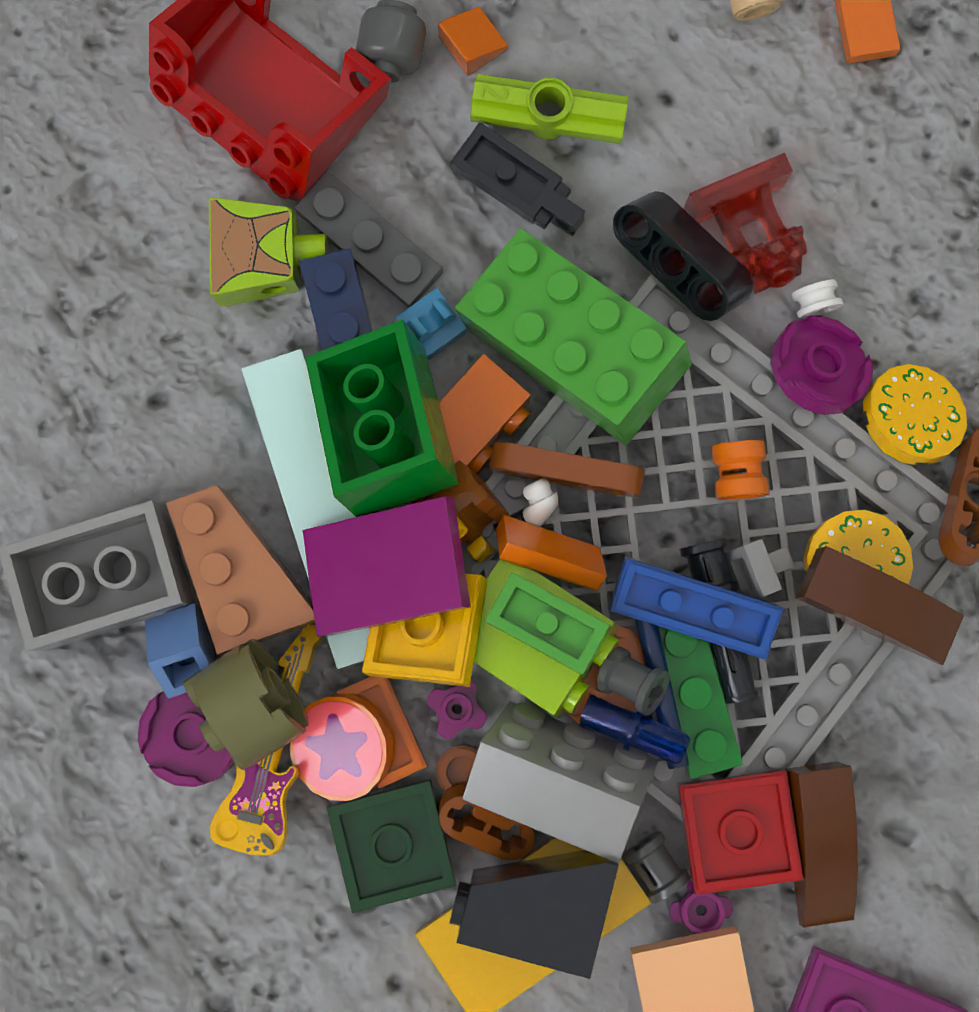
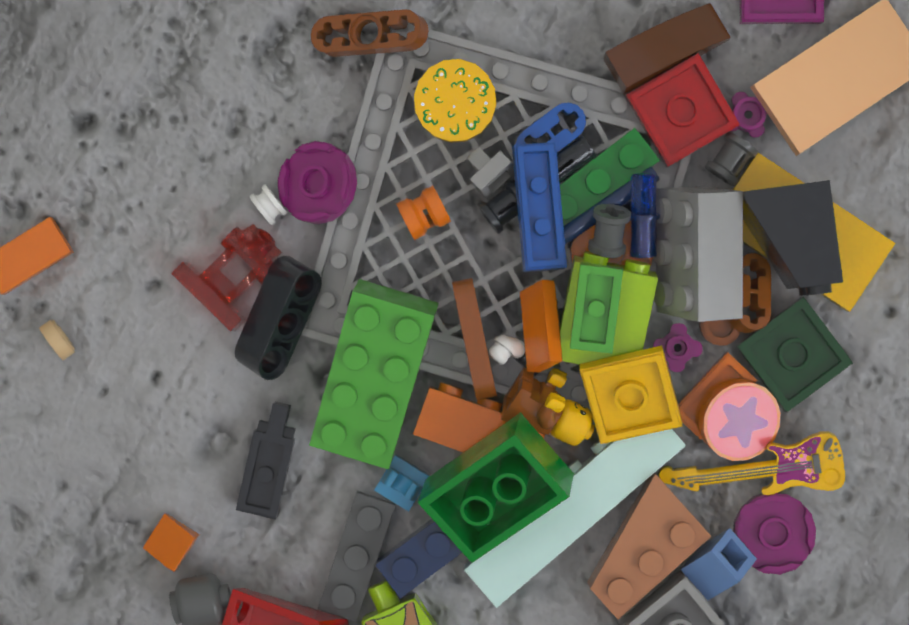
camera: 115 degrees left, 5 degrees up
(246, 704) = (738, 498): olive brick -> none
(386, 567) = (602, 439): magenta tile -> none
(515, 102) = (210, 489): lime piece -> none
(789, 665) = (550, 120): none -> blue beam
(879, 604) = (483, 75): reddish brown slope -> none
(915, 414) = (326, 100): yellow tile -> none

